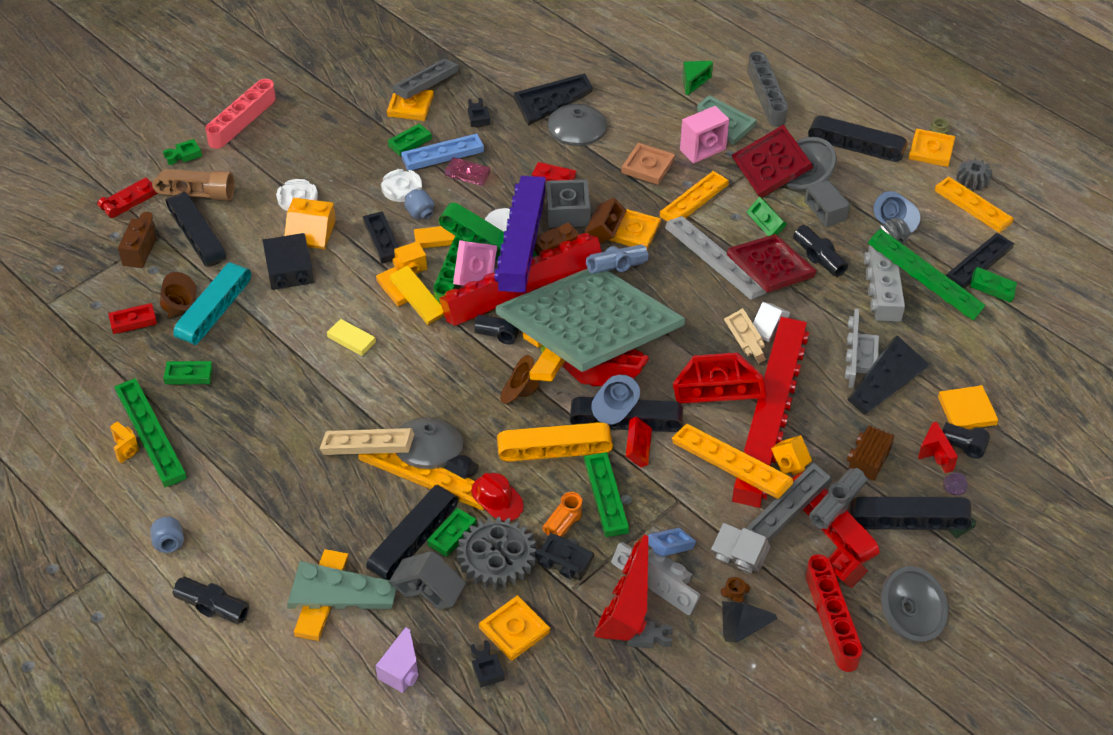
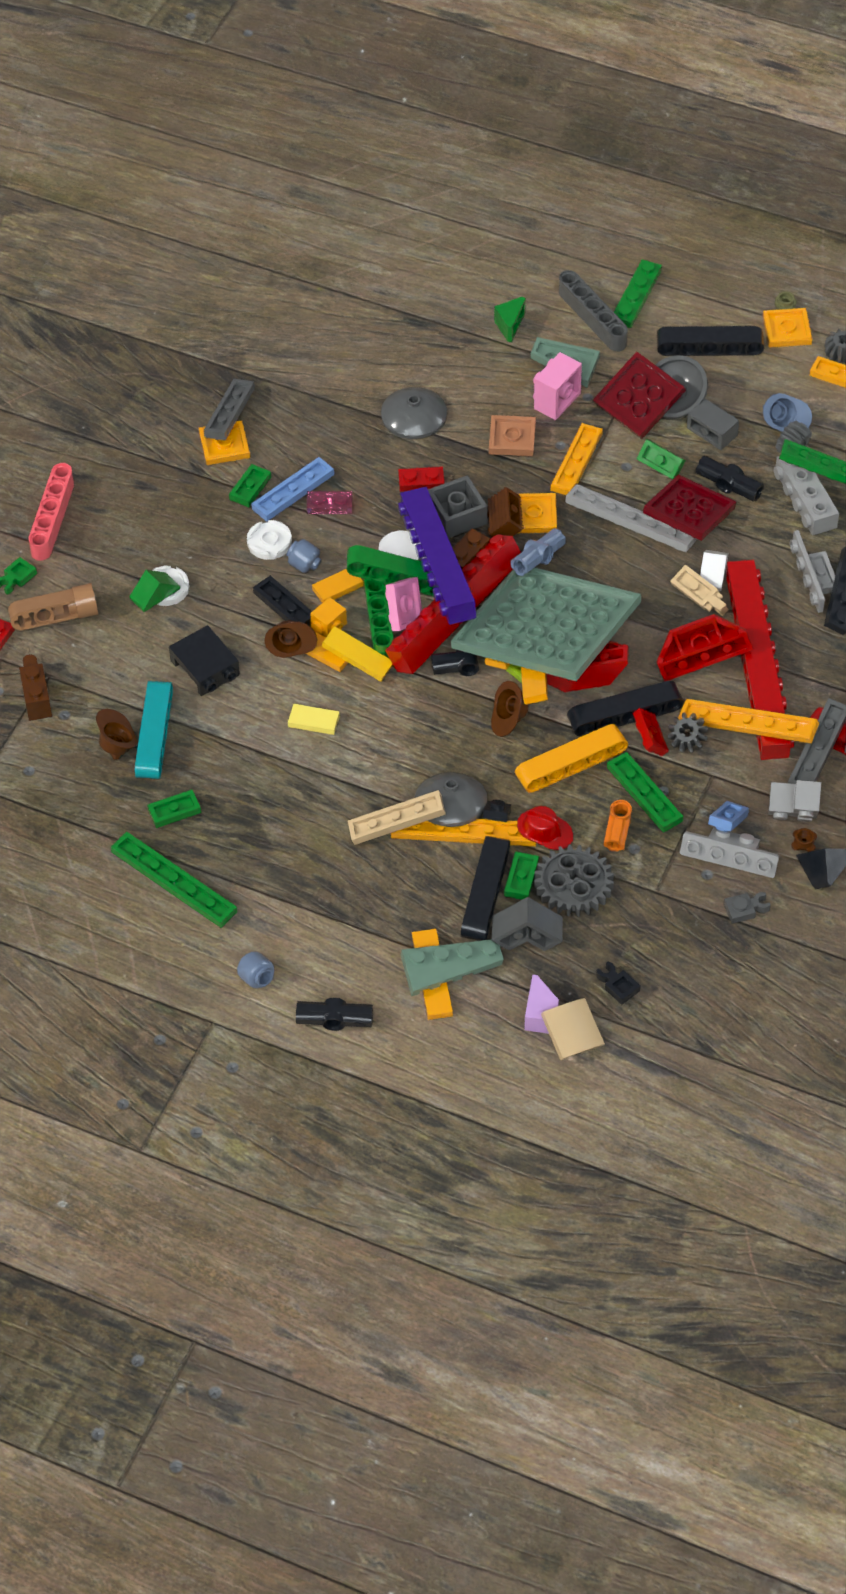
camera: 20 degrees left, 5 degrees up
(125, 440) = (157, 895): light orange bracket -> none
(132, 318) = (81, 772): red plate -> none
(195, 229) = (85, 656): black beam -> none
(280, 192) = (152, 589): none -> green slope
(313, 219) = (200, 608): light orange slope -> none
(365, 265) = (290, 639): none -> reddish brown piece
(416, 693) = (572, 1028): none -> tan slope
(478, 113) = (305, 434): black plate -> none
(514, 628) = (624, 942): light orange tile -> none
(545, 99) = (368, 393): black wing -> none
(564, 556) = (637, 863): black bracket -> none
(615, 399) = (615, 697): sand blue piece -> none
(628, 608) = (721, 884): red wedge -> none
(677, 459) = (678, 730): none -> dark grey gear
(792, 455) = (800, 697): light orange brick -> none
(813, 86) = (637, 292): none -> green plate

